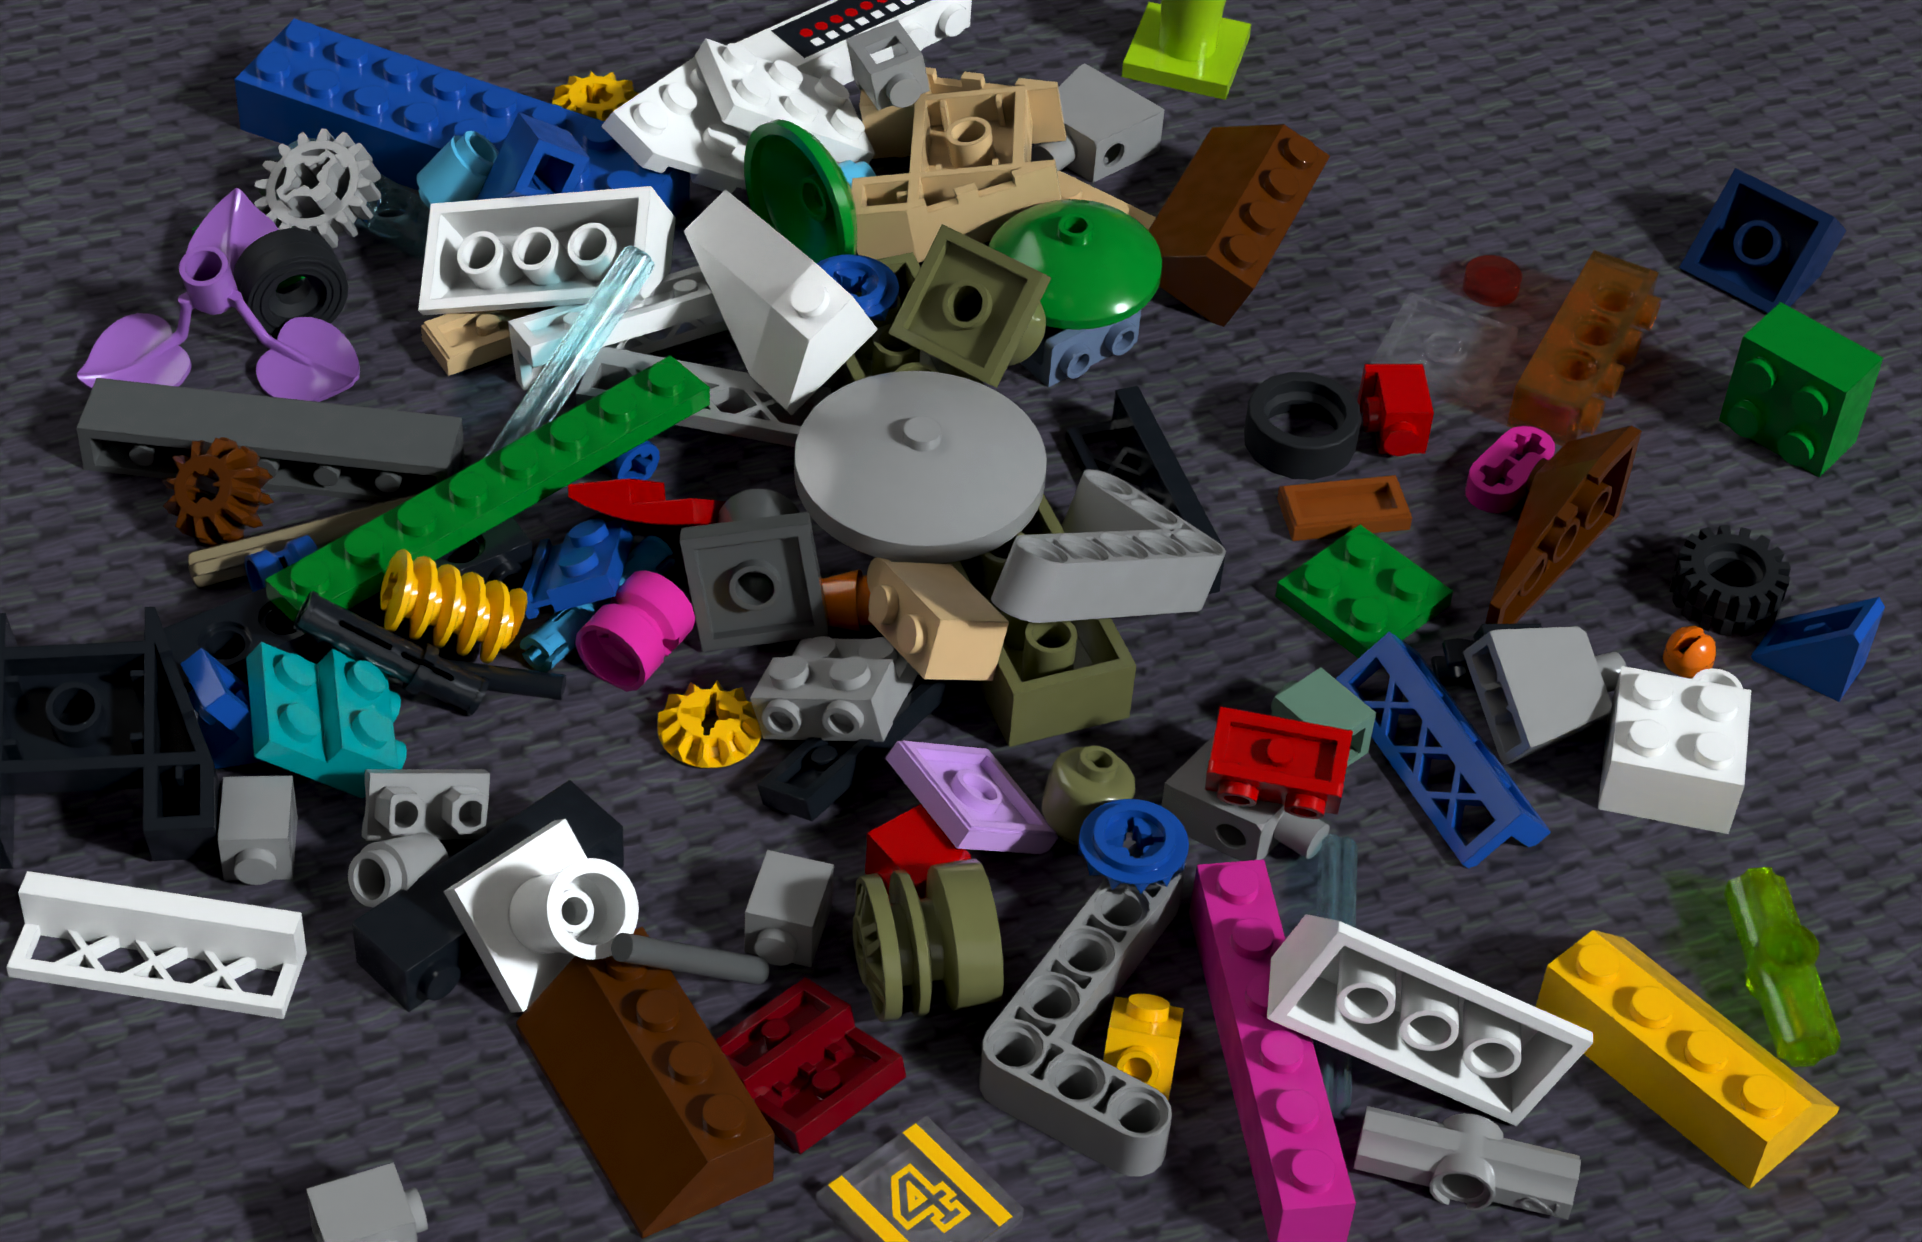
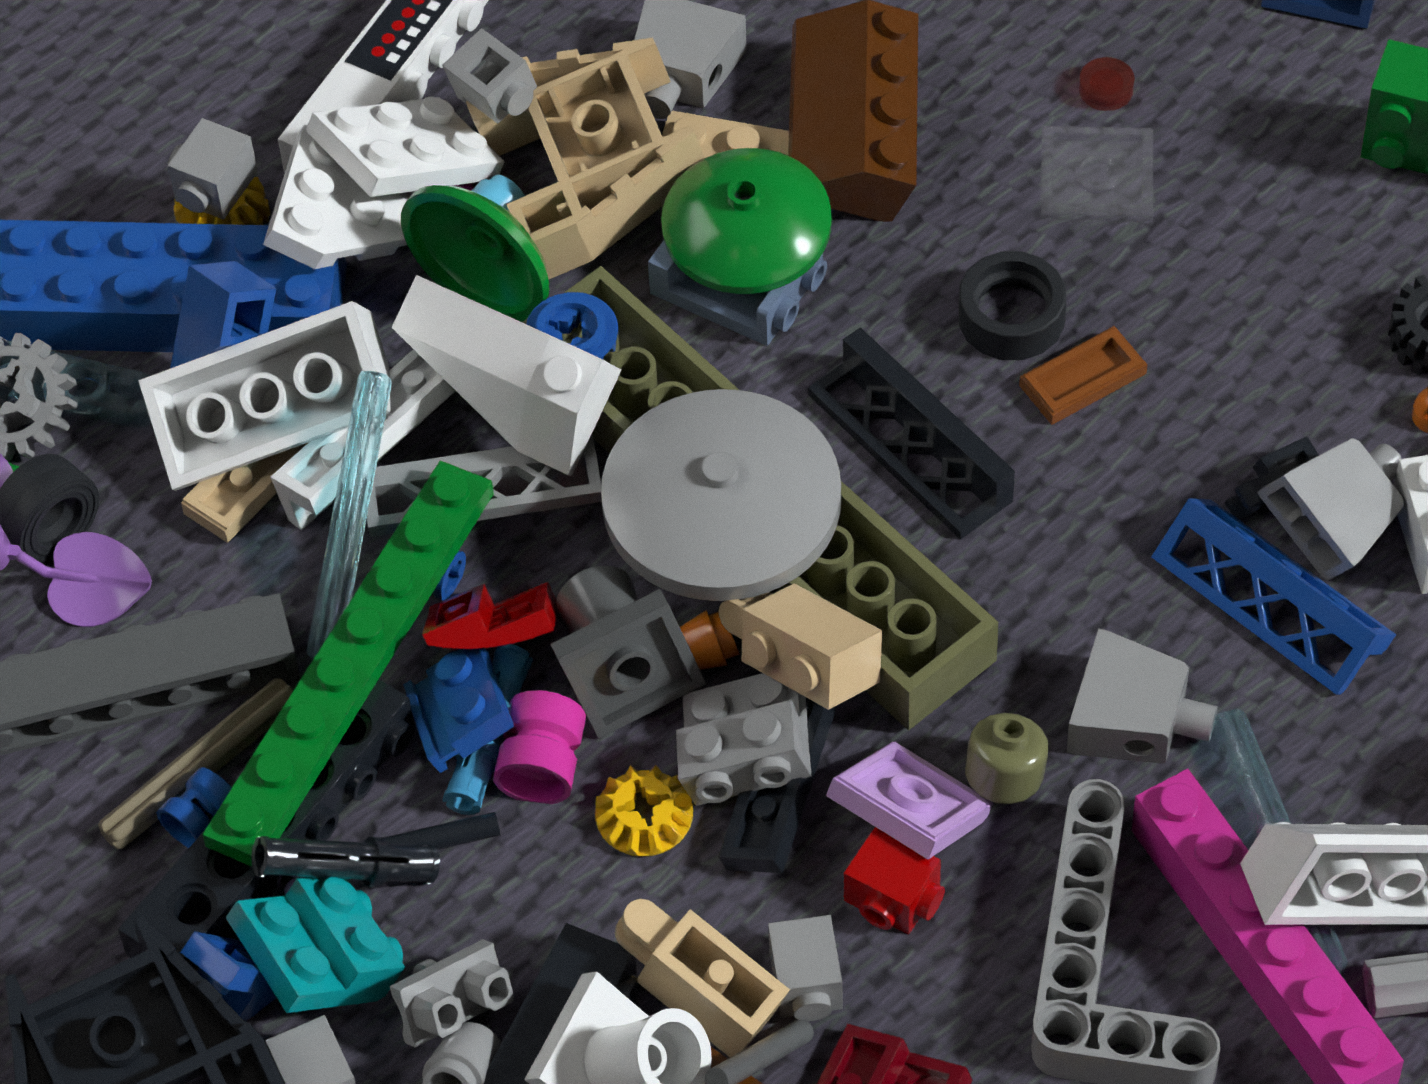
camera: 15 degrees left, 10 degrees up
(239, 482) = (76, 761): reddish brown gear -> none
(451, 605) = (376, 793): yellow piece -> none
(457, 170) = (142, 335): medium azure brick -> none
(597, 65) = (212, 168): none -> light grey brick
(676, 867) = (700, 973): none -> tan brick
(926, 940) = (945, 955): olive wheel -> none
(973, 307) = (671, 334): olive plant -> none
(1113, 560) = (962, 516): light grey beam -> none
(1144, 1039) = (1156, 971): yellow bracket -> none
(1153, 829) = (1083, 776): blue gear -> none
(1278, 763) = (1162, 672): red bracket -> none
(1327, 703) = (1164, 607): sand green brick -> none
(1363, 591) = (1138, 457): green plate -> none
(1396, 407) = (1087, 257): red brick -> none
(1500, 462) = (1218, 283): dark pink beam -> none
(1564, 513) = (1272, 320): reddish brown wedge -> none
(1585, 348) = (1222, 132): clear orange brick -> none

